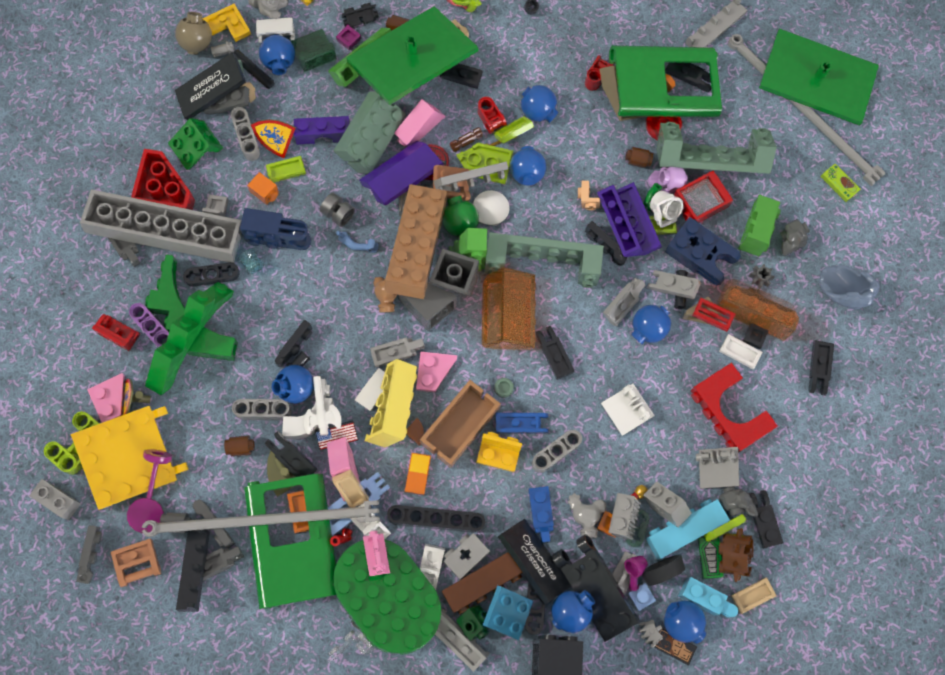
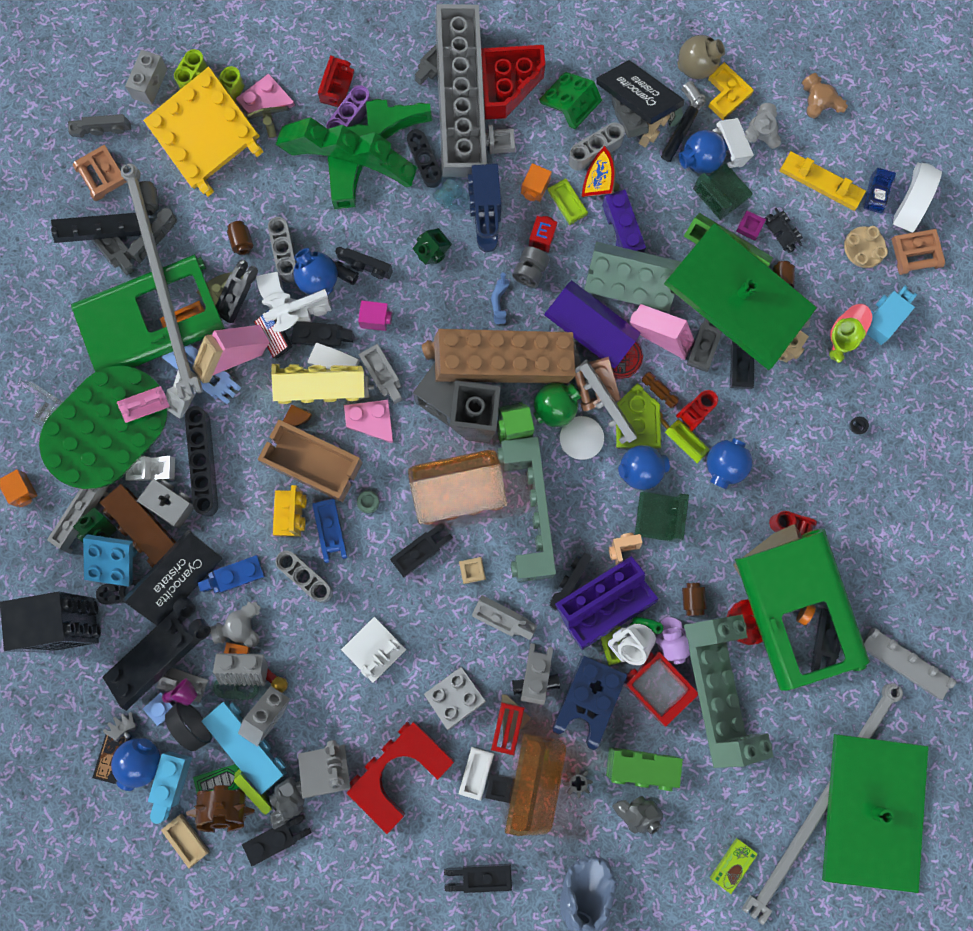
camera: 80 degrees right, 5 degrees up
(147, 508) = (152, 163): magenta piece -> none
(296, 283) = (432, 246): none -> dark green brick
(310, 193) = (543, 233): none -> red brick
(342, 538) = (161, 366): red arm -> none
(344, 345) = (374, 315): none -> dark pink brick
(347, 394) = (326, 334): none -> black hinge
(417, 473) = (249, 430): orange tile -> none
(439, 97) = (704, 347): none -> dark grey hinge
(570, 162) = (661, 516): none -> clear green bracket
(572, 611) = (124, 632): blue brick -> none
(580, 317) = (472, 570): none -> tan tile
(651, 324) = (481, 655): blue brick -> none
(680, 353) = (454, 698): none -> light grey hinge

